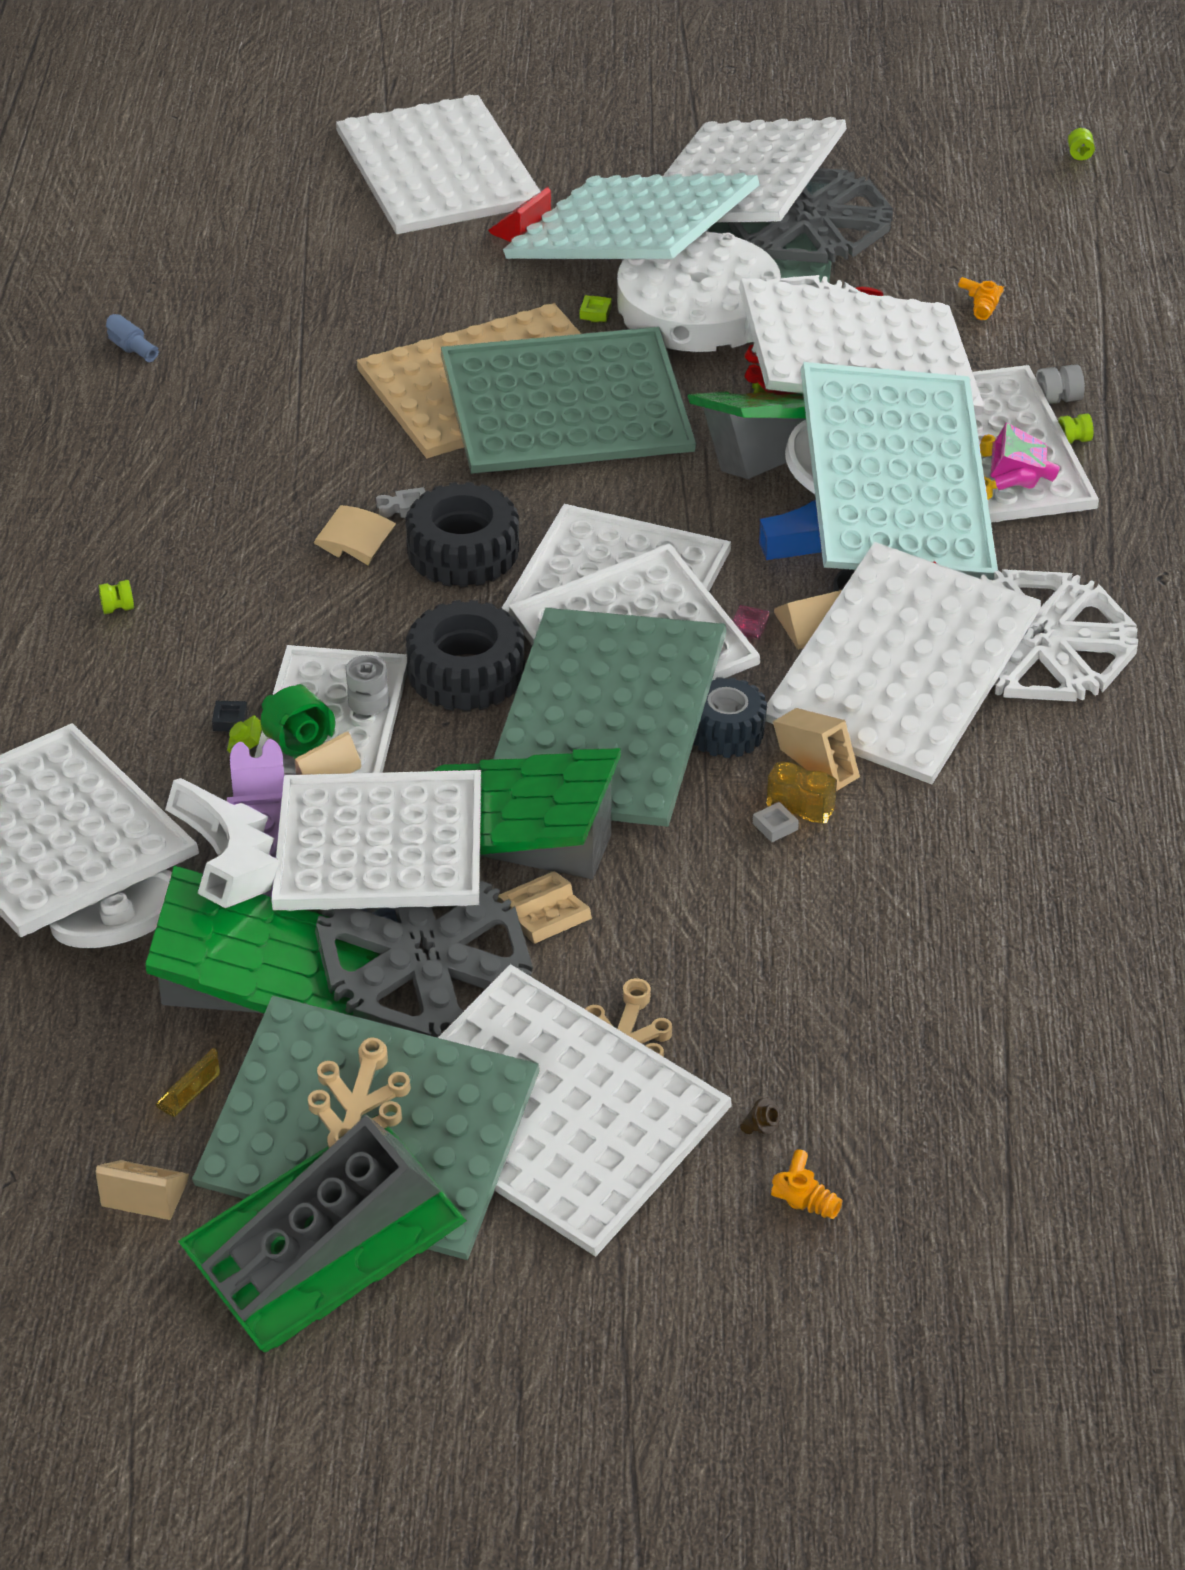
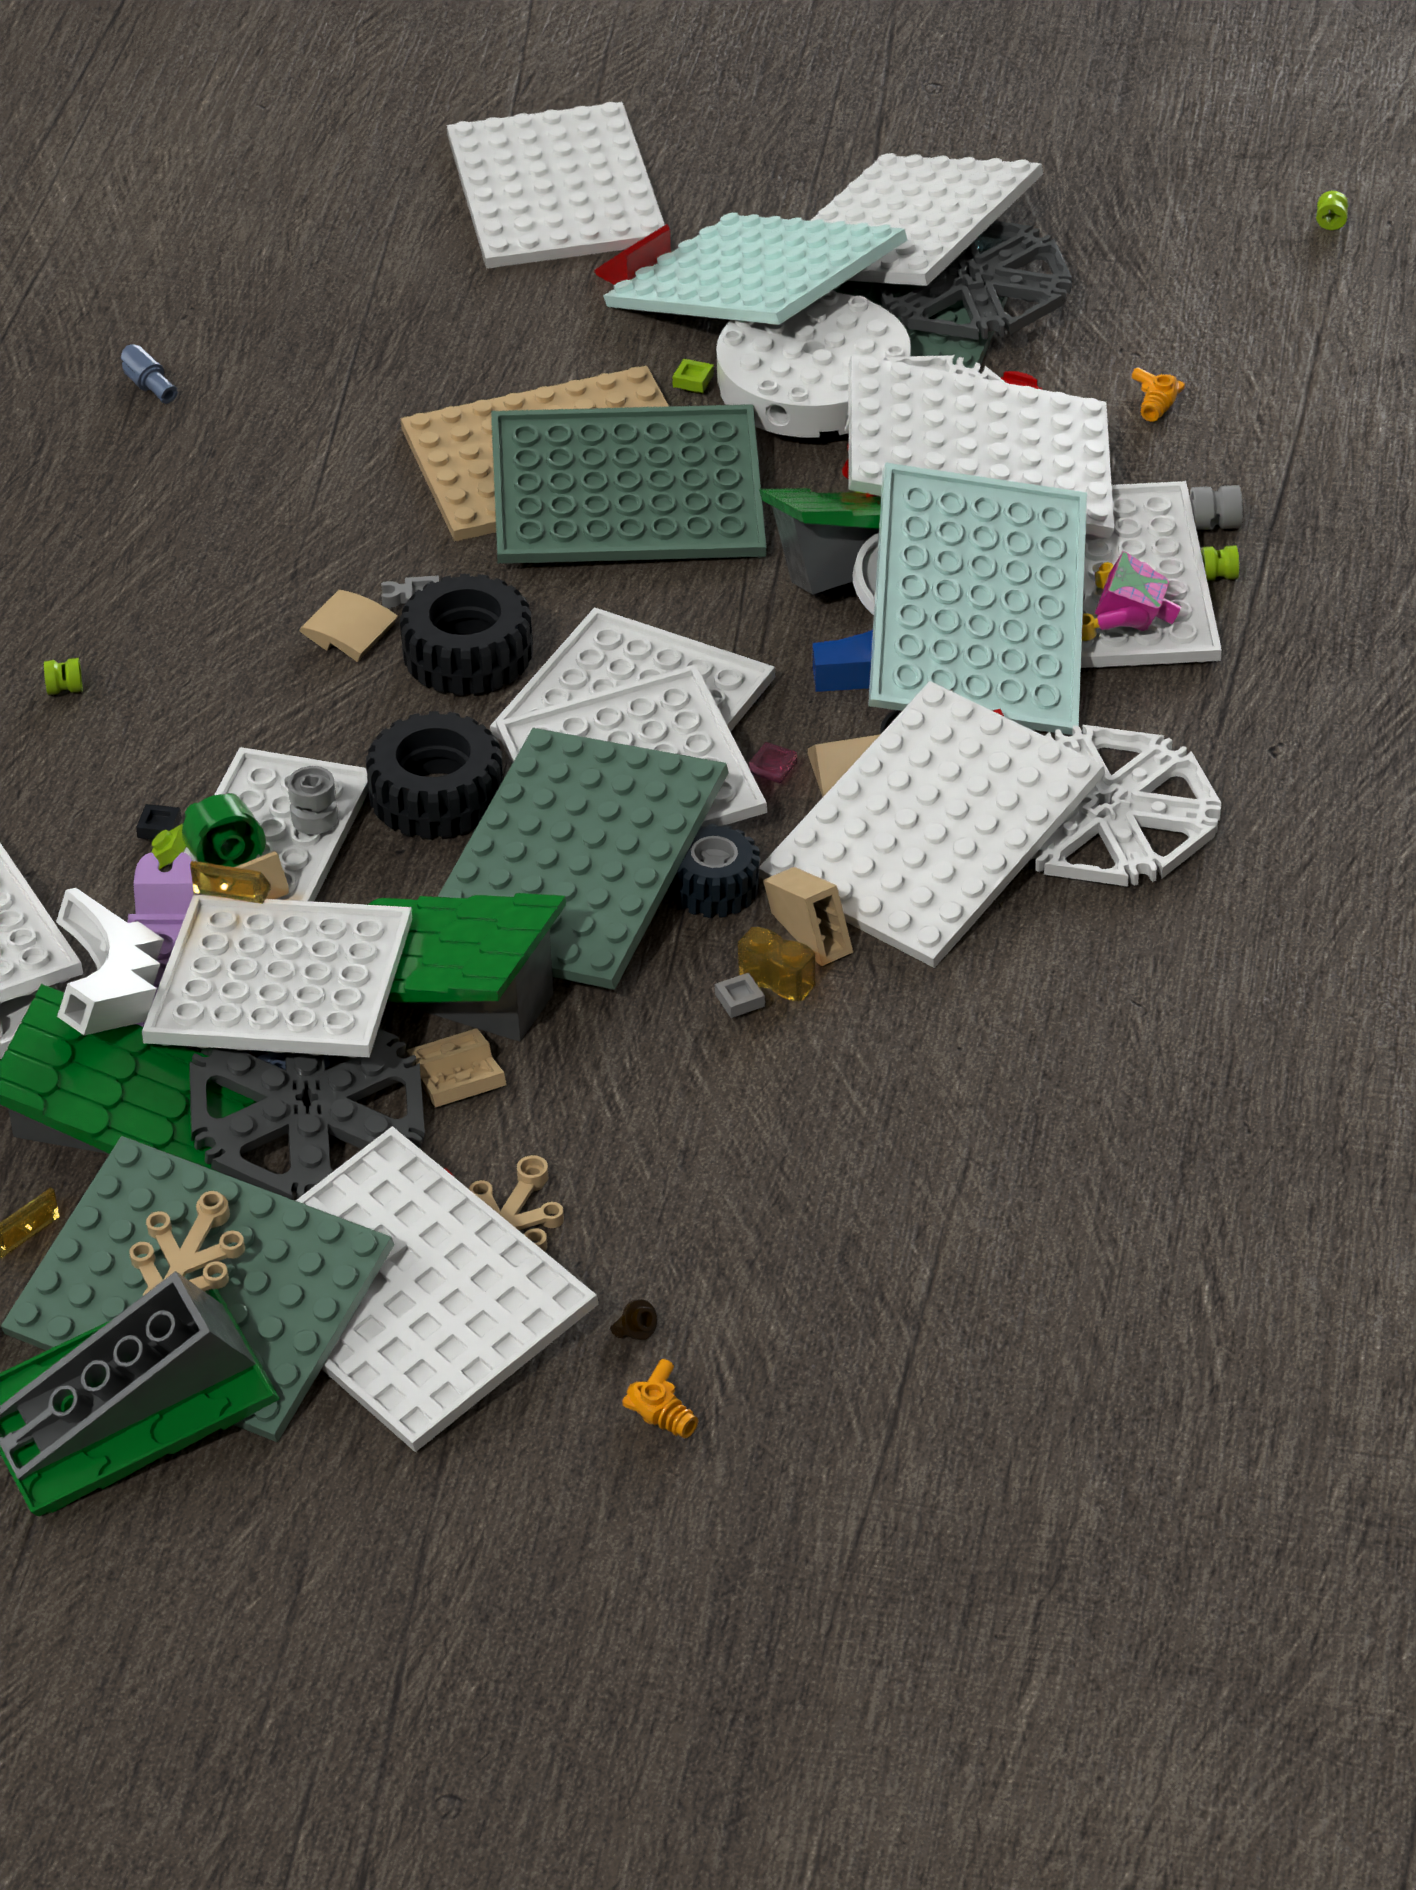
camera: 10 degrees right, 0 degrees up
(316, 761) = (229, 882): none -> clear yellow slope

